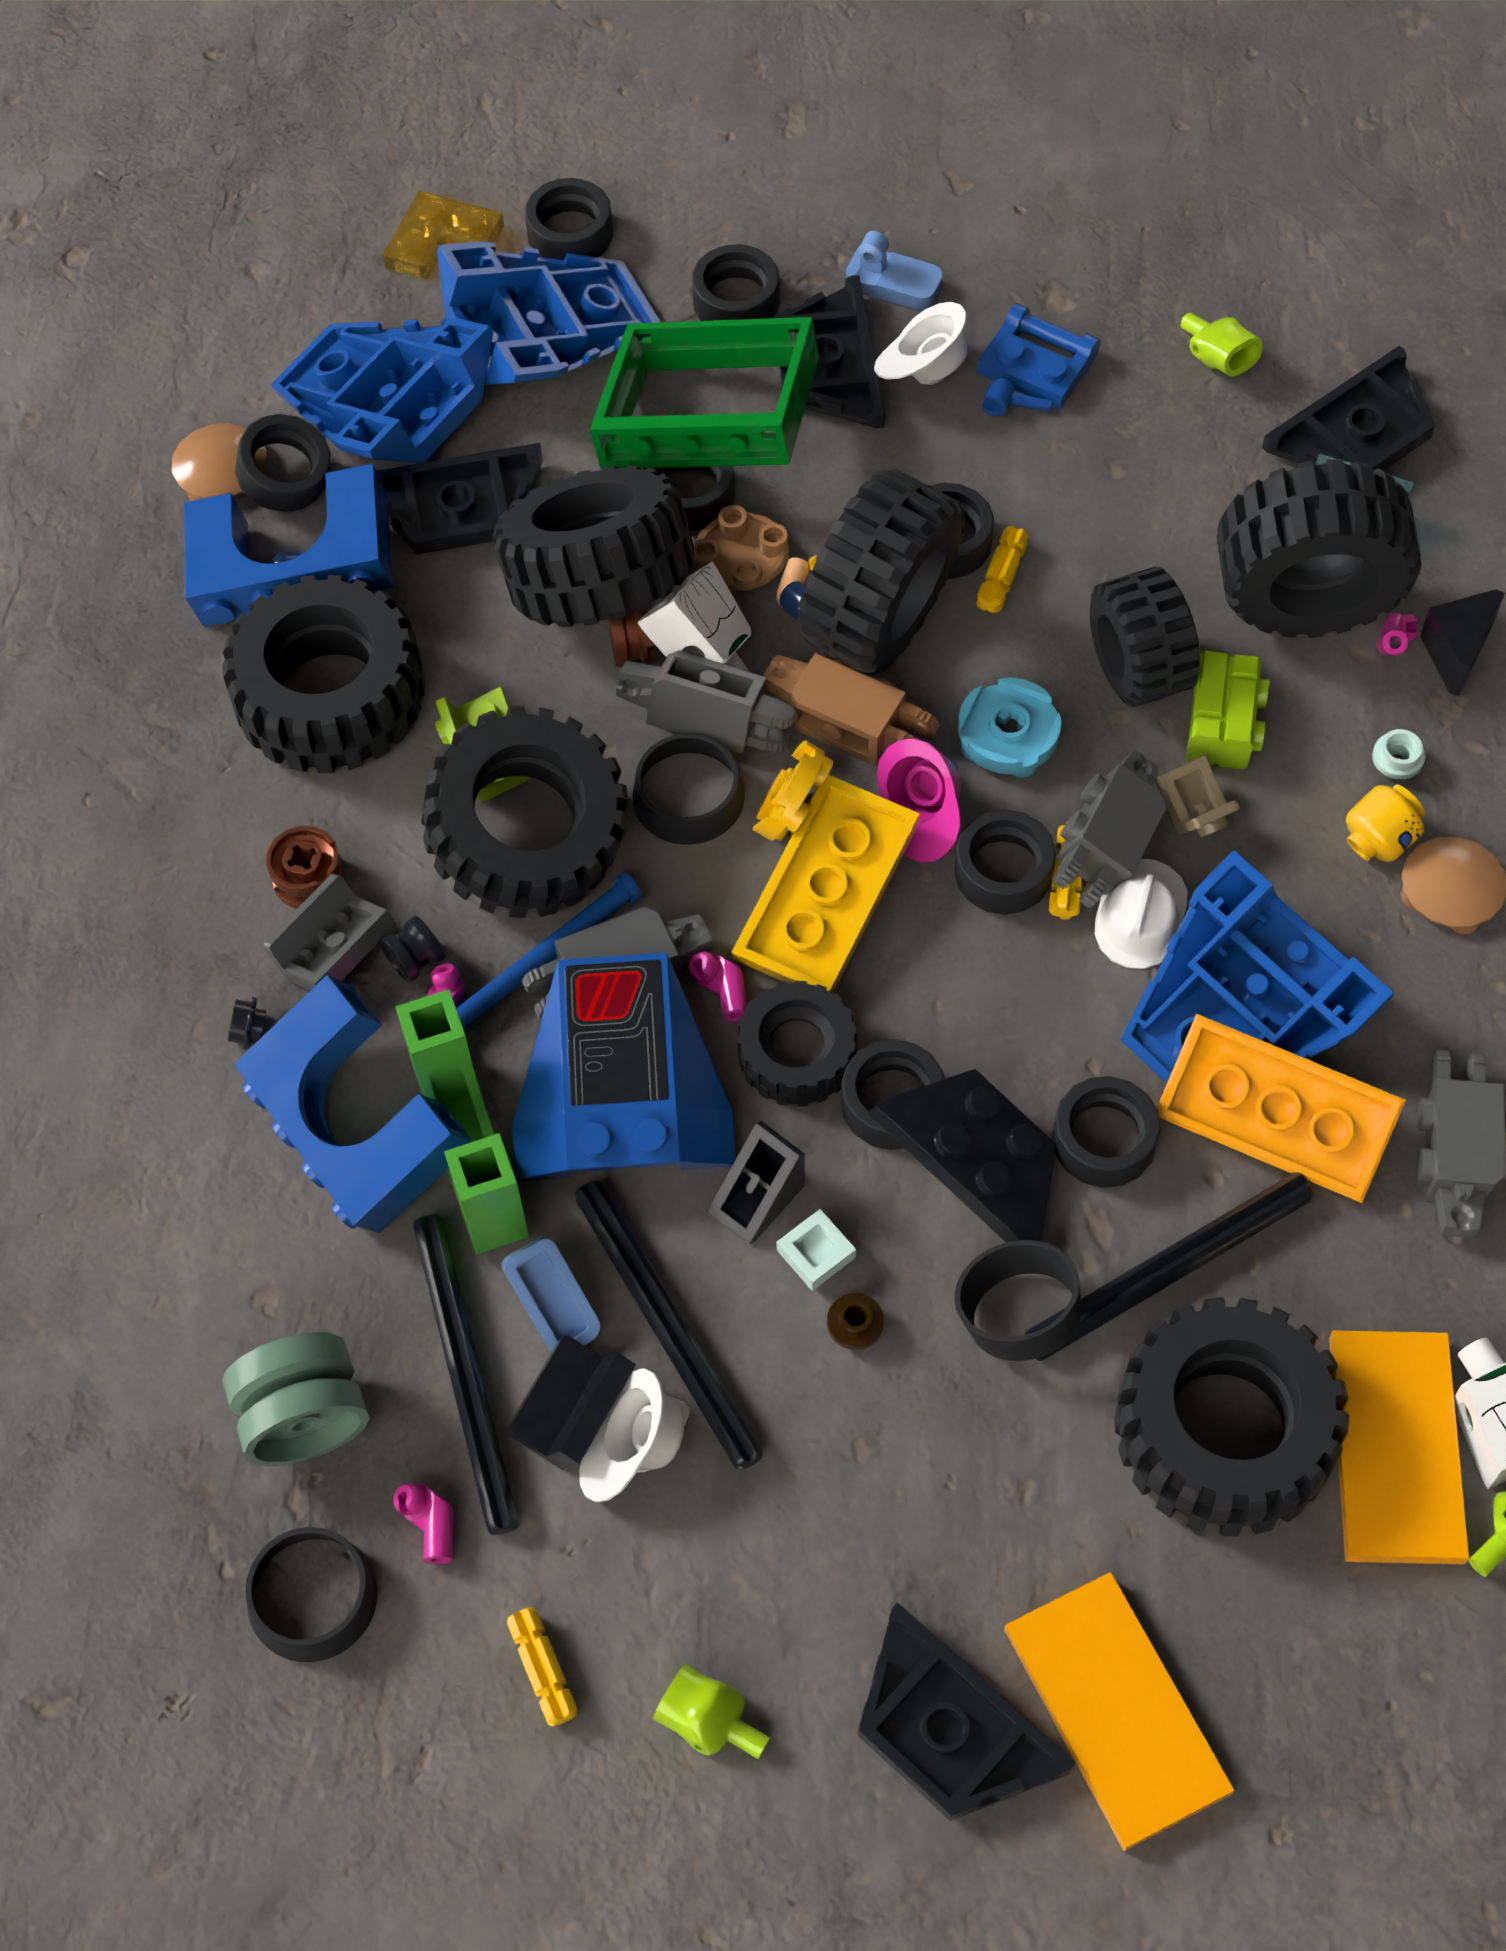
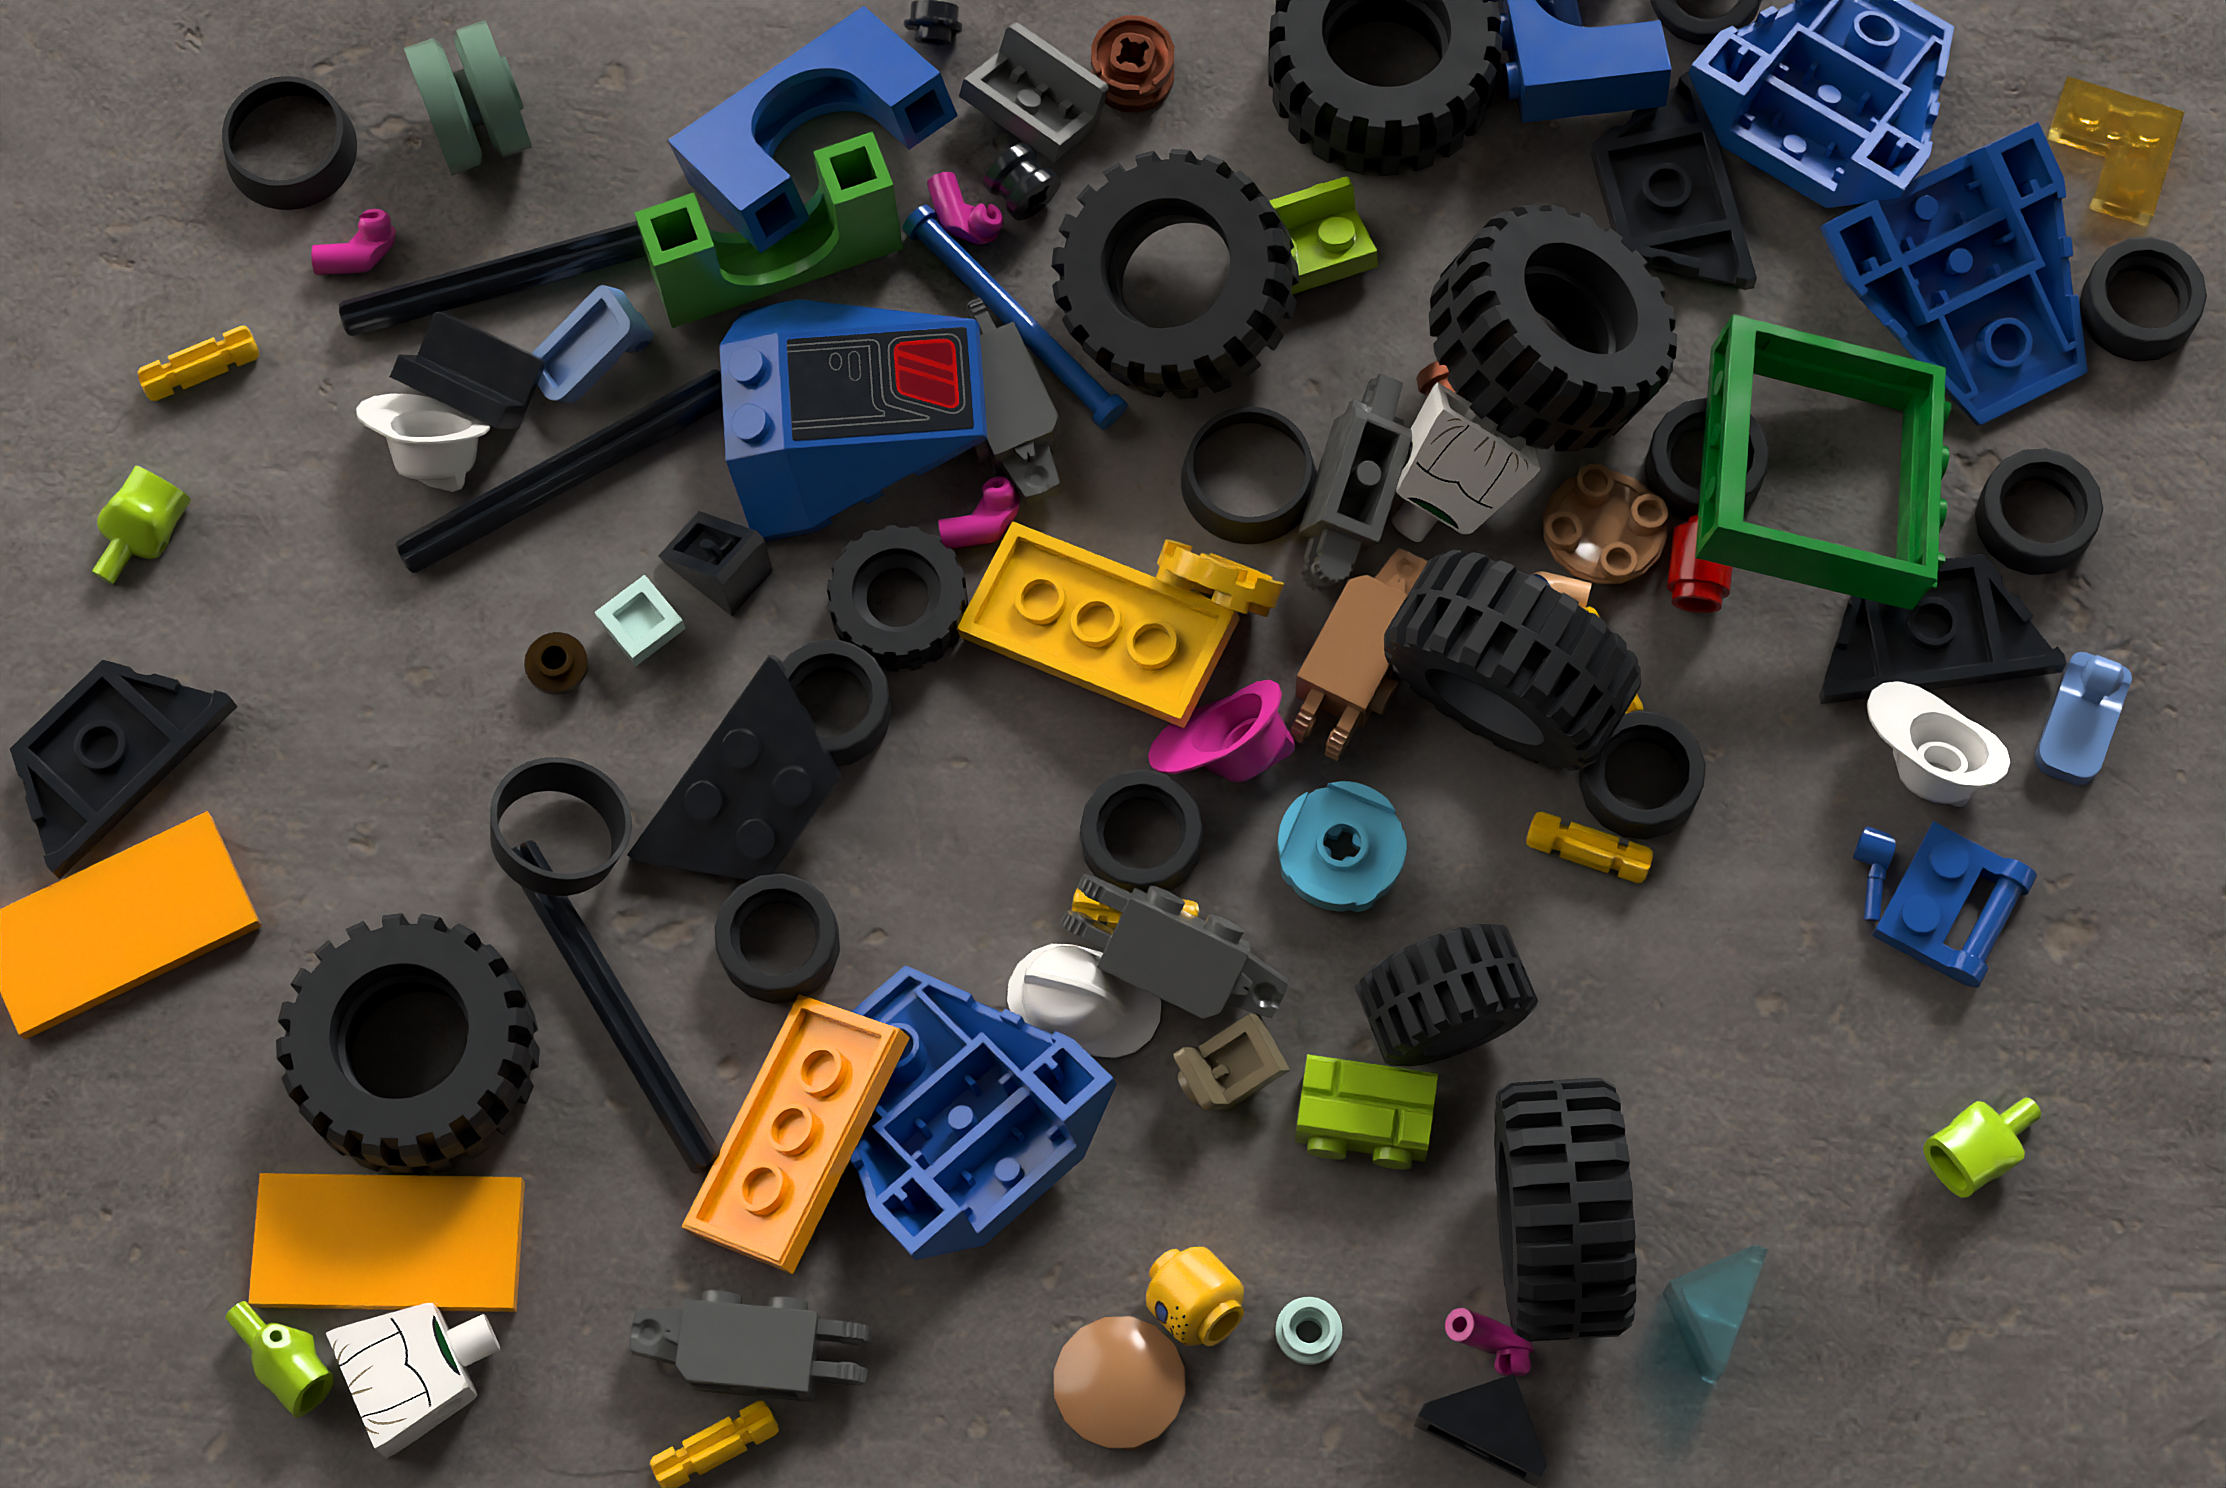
camera: 90 degrees right, 10 degrees up
(775, 488) = (1694, 582): none -> red brick
(1365, 419) = (1853, 1329): black wing -> none

